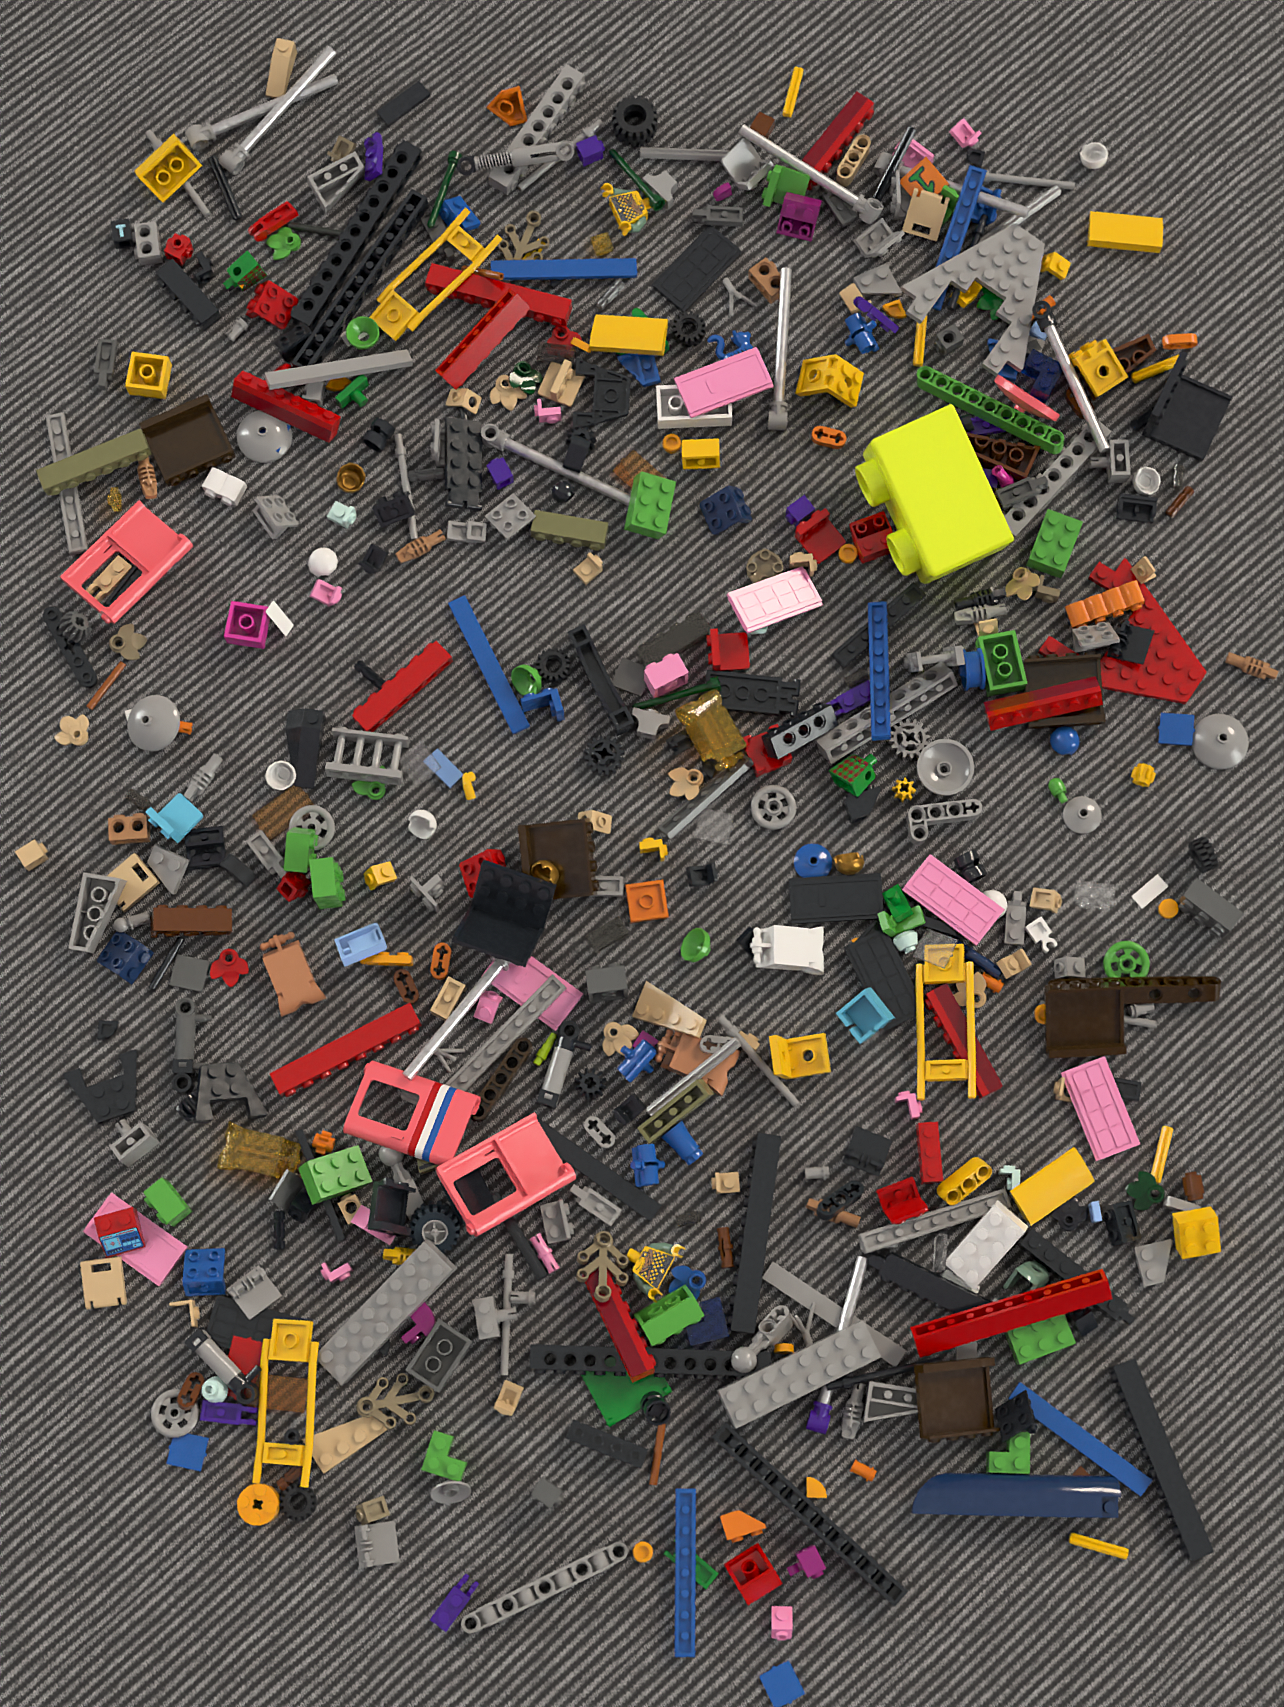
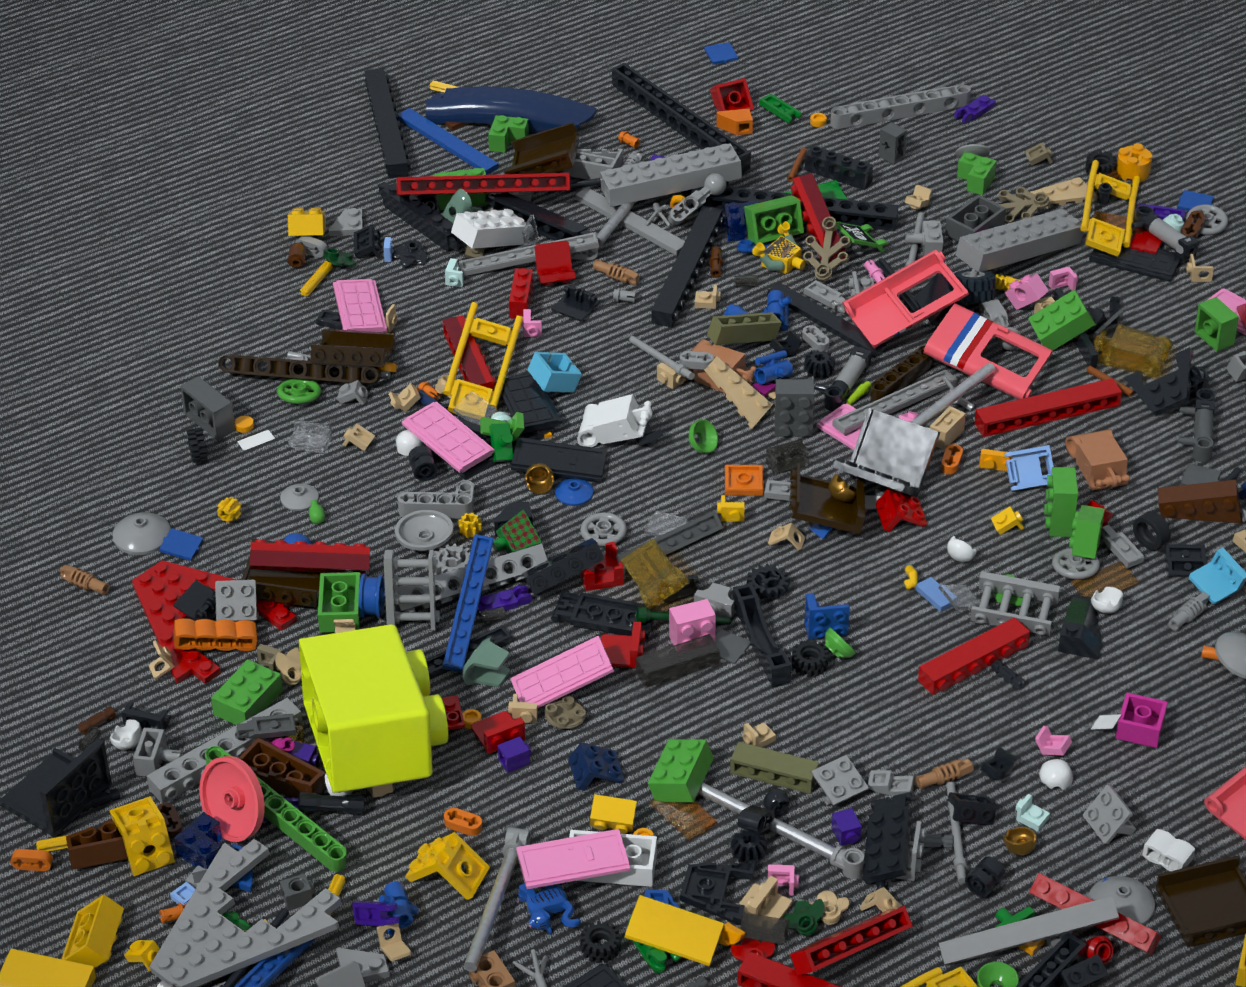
camera: 170 degrees left, 35 degrees down
(168, 867) = (1221, 540): light grey wing -> none
(204, 1272) = (1182, 290): blue bracket -> none
(228, 970) = (1161, 476): red plate -> none
(254, 1292) = (1138, 274): light grey hinge -> none
(283, 1110) = (1100, 375): none -> dark orange piece
(323, 1142) = (1071, 351): orange gear -> none
(377, 1544) = (1032, 138): light grey hinge -> none
(389, 1207) = (1014, 284): black panel -> none
(410, 984) = (985, 440): reddish brown beam -> none
(431, 889) = (960, 495): light grey bracket -> none
(488, 664) = (881, 672): blue tile -> none
(523, 1297) = (898, 251): light grey pin -> none
(571, 1305) = (859, 235): none -> flag
(655, 1408) = (792, 171): black wheel -> none
(683, 783) = (689, 556): tan plate -> none
(685, 1571) = (786, 101): blue tile -> none
(697, 1073) = (723, 342): light grey axle -> none
(702, 875) = (687, 487): black bracket -> none
(781, 1622) = (714, 75): bright pink bracket -> none
(789, 1056) = (627, 361): yellow bracket -> none
(809, 1562) = (686, 90): magenta brick -> none
(814, 1489) = (671, 135): light orange tile -> none
(837, 1207) = (610, 264): black beam -> none
(846, 609) = (486, 665): none -> sand green piece
(894, 309) = (349, 937): light orange tile -> none
(964, 1181) = (494, 274): yellow beam -> none
(1015, 920) = (390, 430): light grey hinge -> none
(1016, 1416) = (496, 144): black hinge -> none
(1039, 931) = (371, 418): white plate -> none
(1047, 324) = (179, 870): flat silver piece -> none
(1052, 1186) = (418, 261): yellow slope -> none
(1102, 275) = (94, 932): none -> yellow slope

